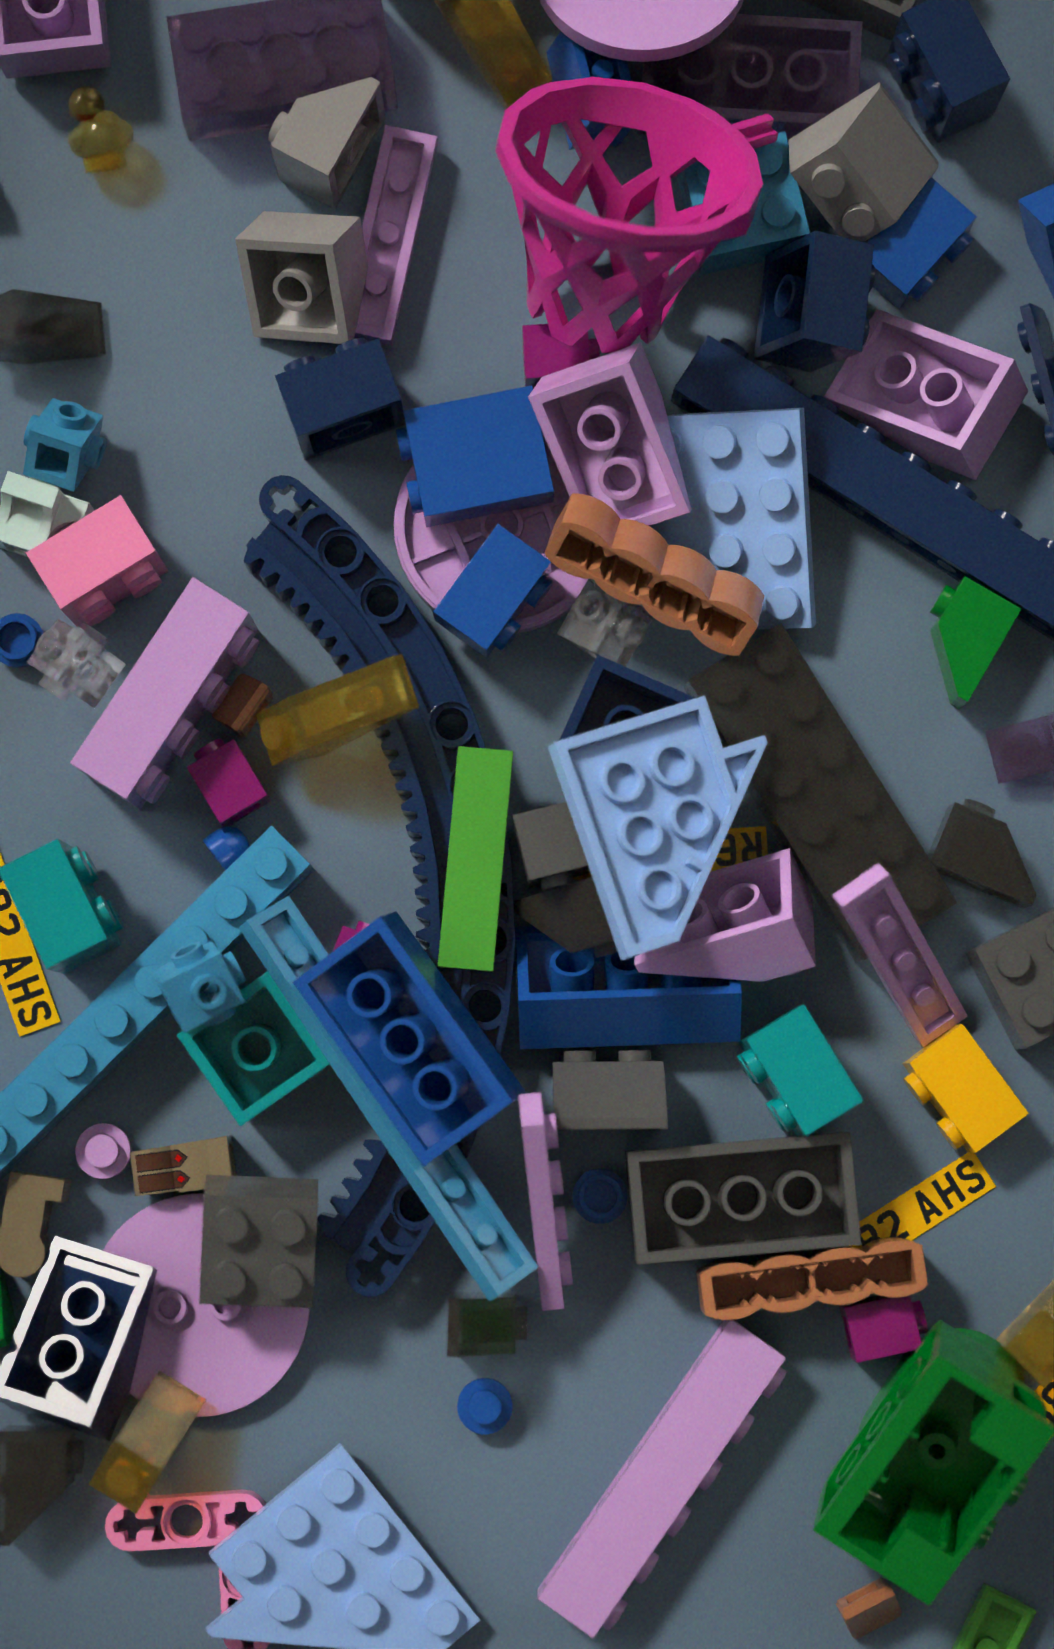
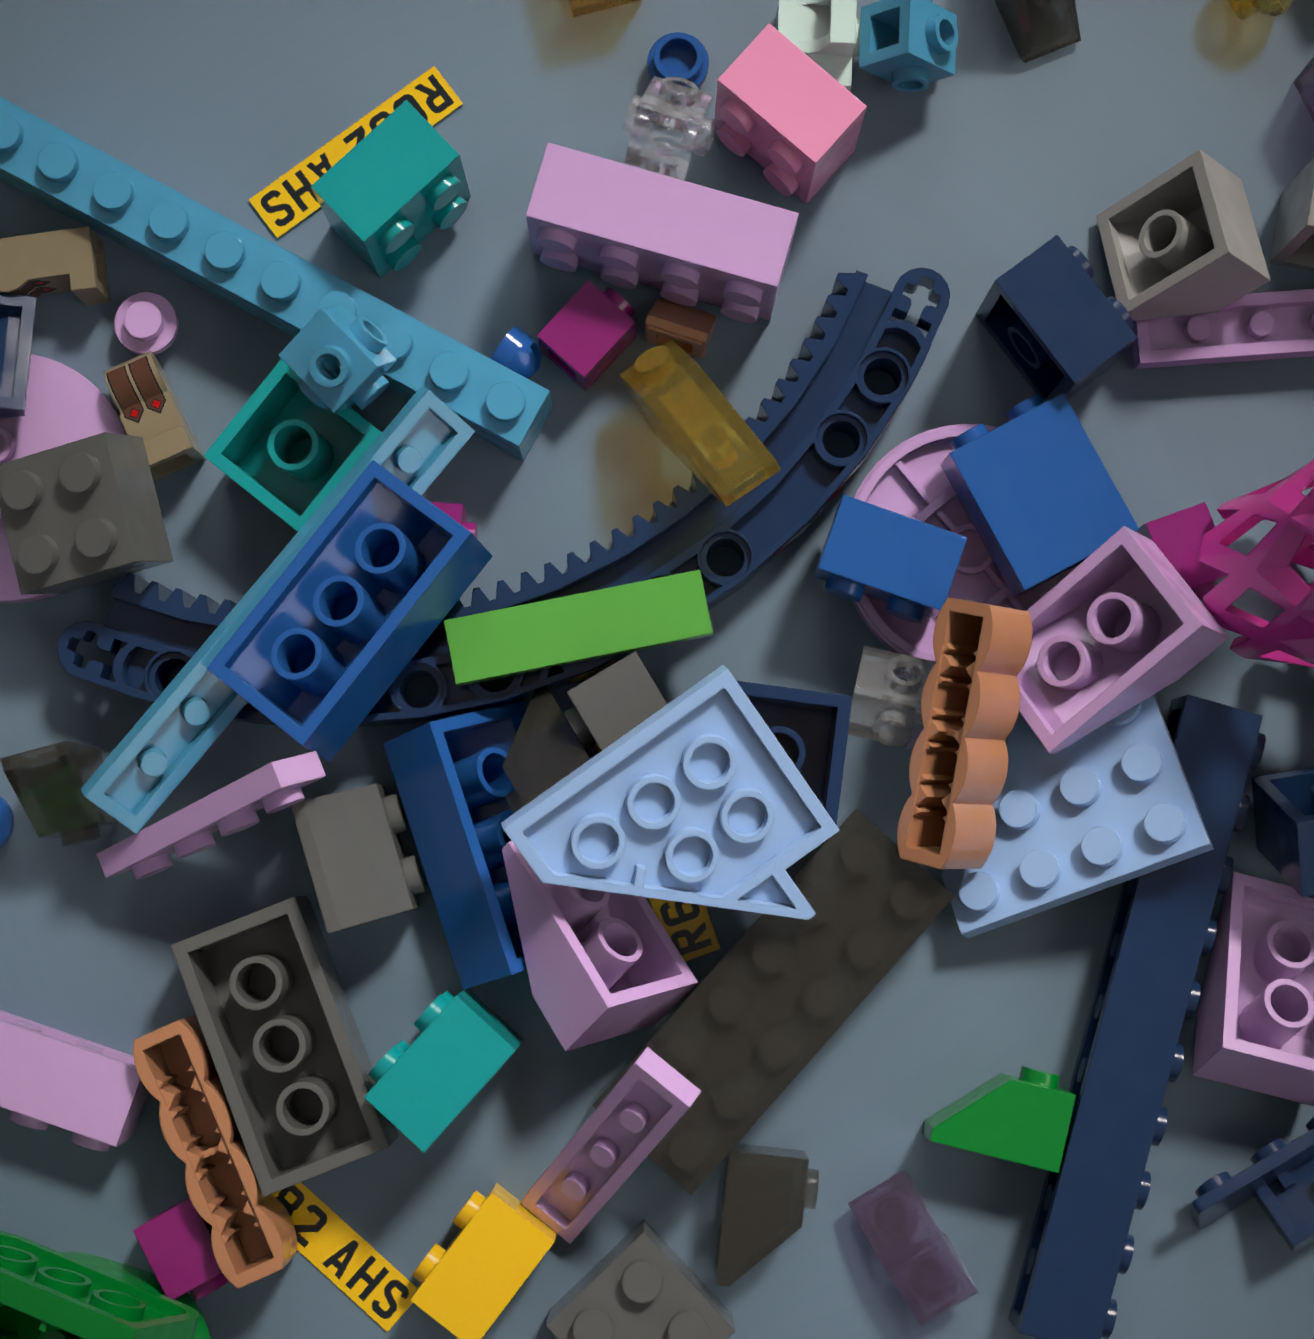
camera: 75 degrees right, 0 degrees up
(600, 1196) = (248, 882): blue plate -> none

